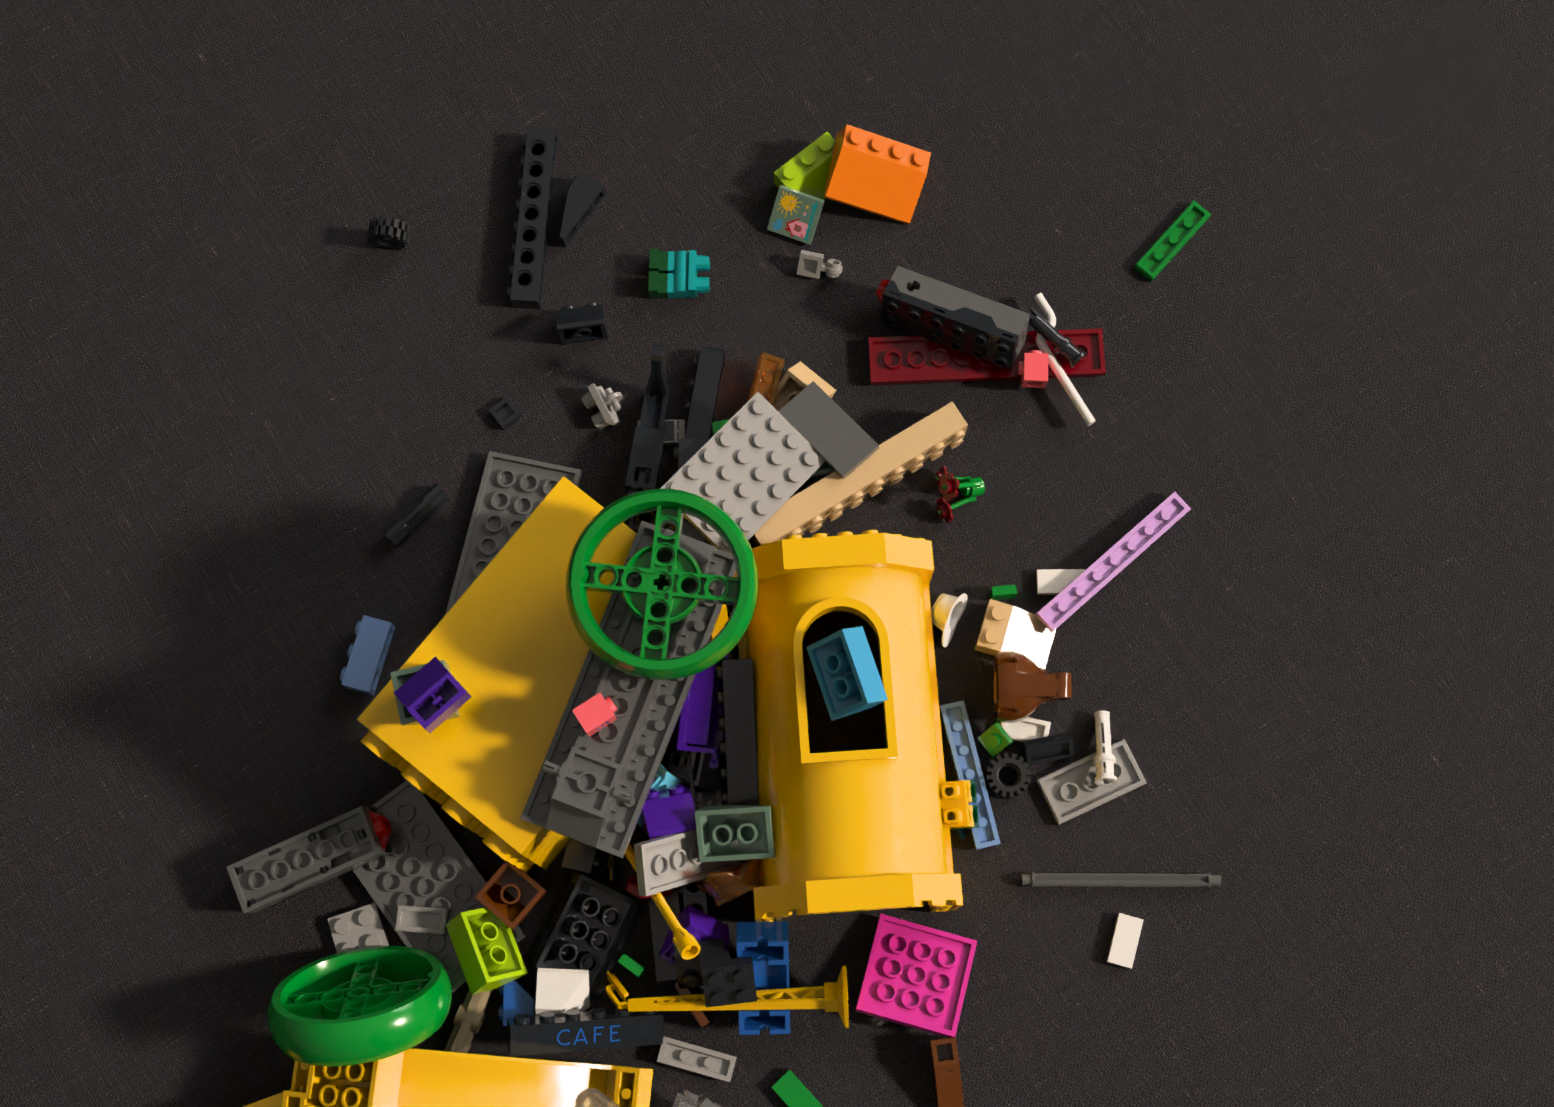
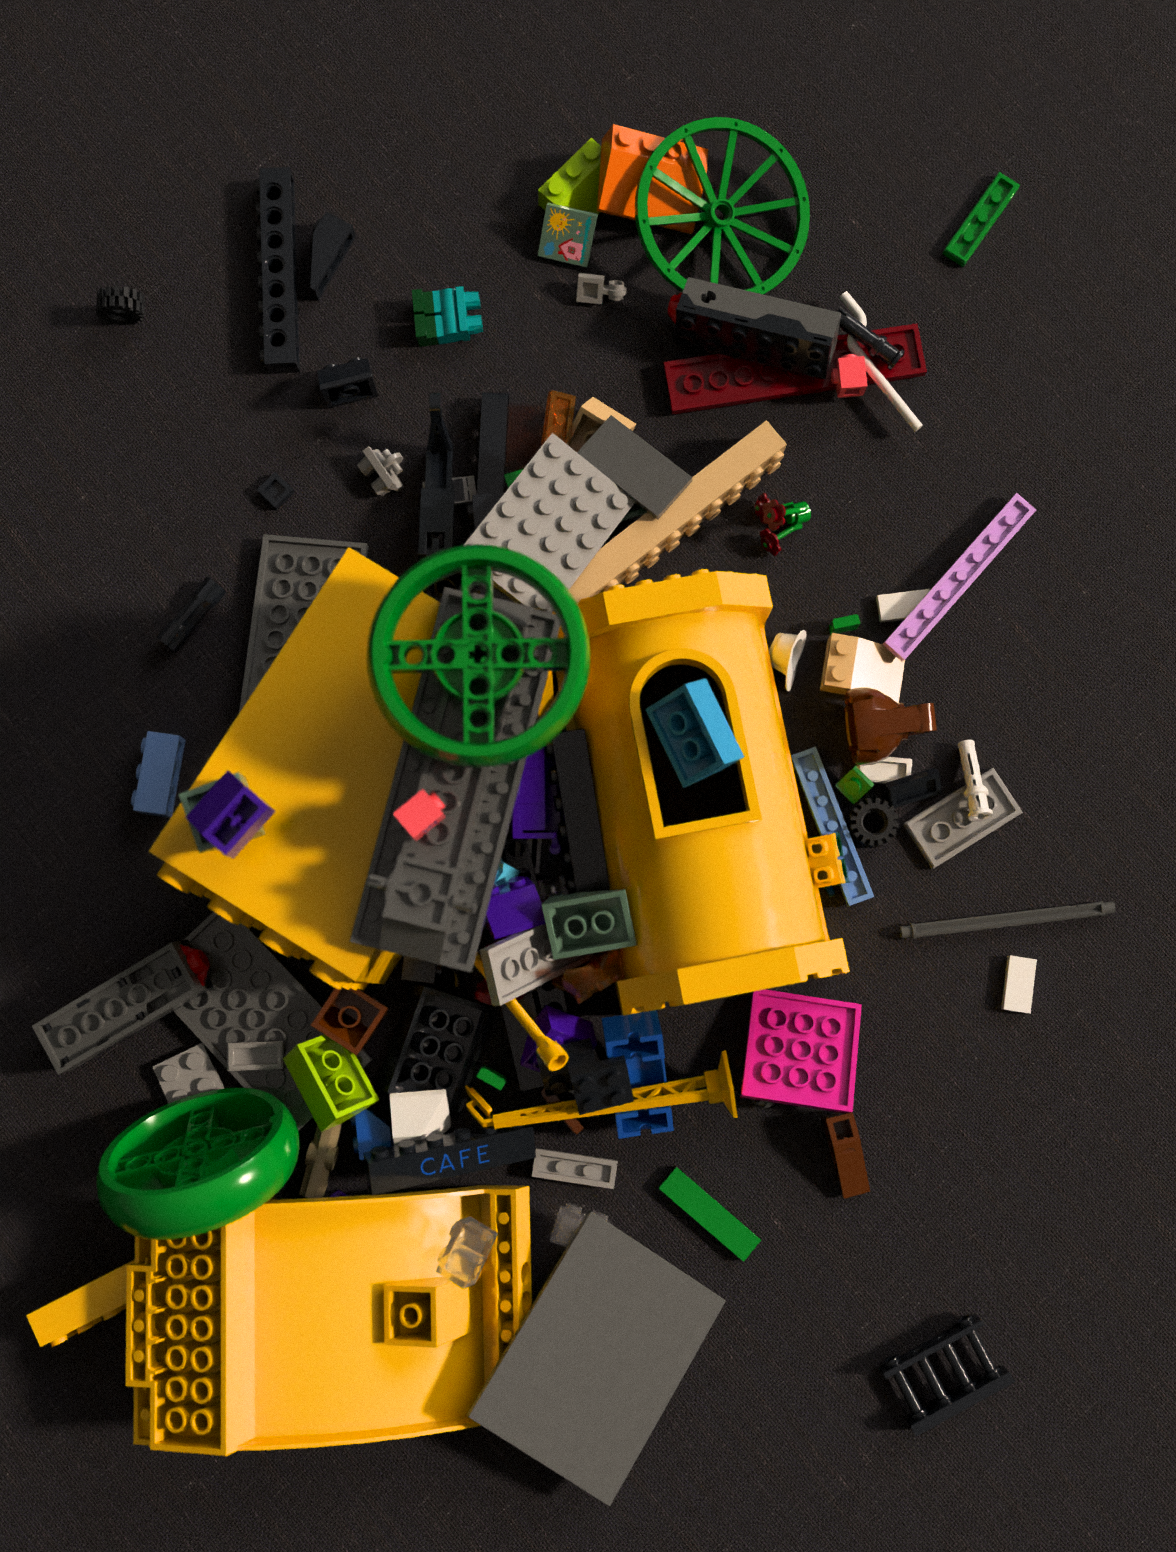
camera: 10 degrees left, 5 degrees up
(993, 163) = (725, 206): none -> green wheel

